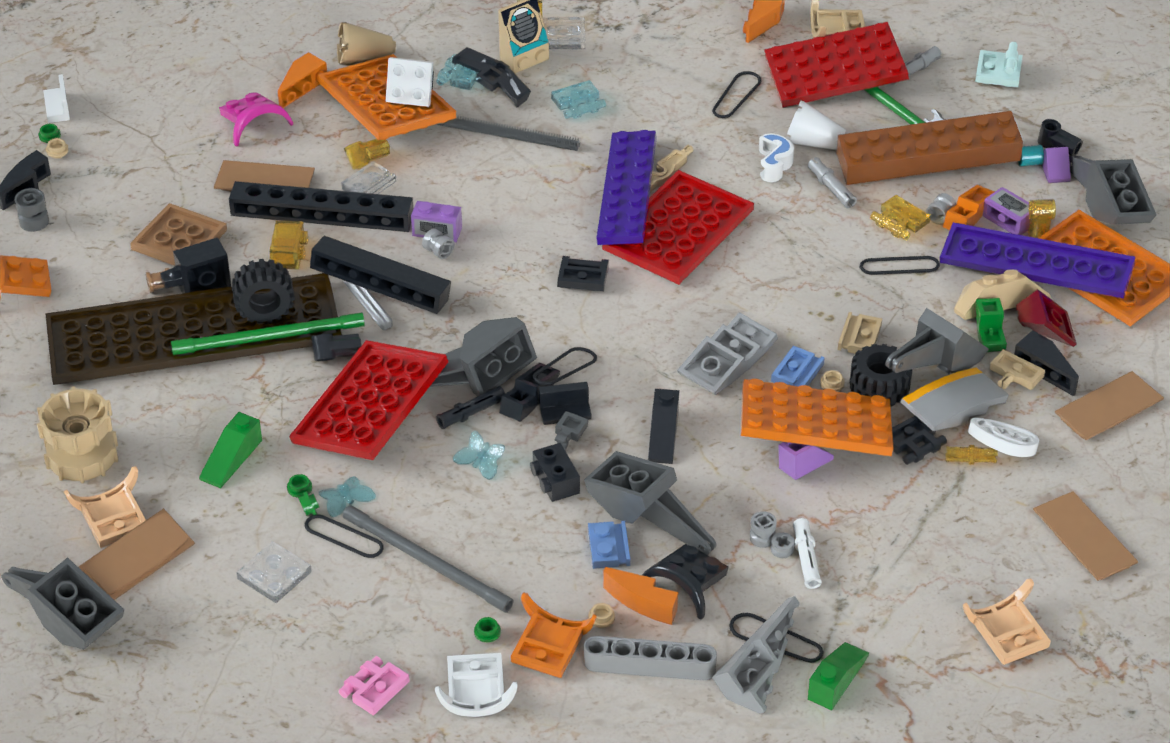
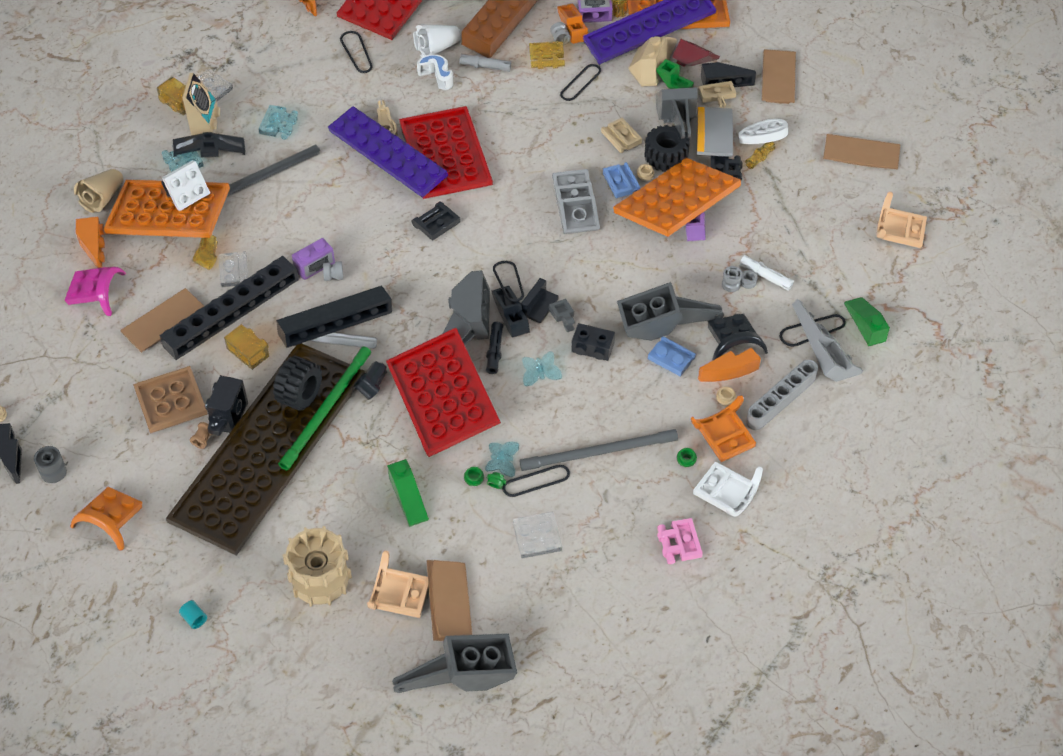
camera: 50 degrees left, 10 degrees up
(664, 426) = (605, 267): black slope -> none

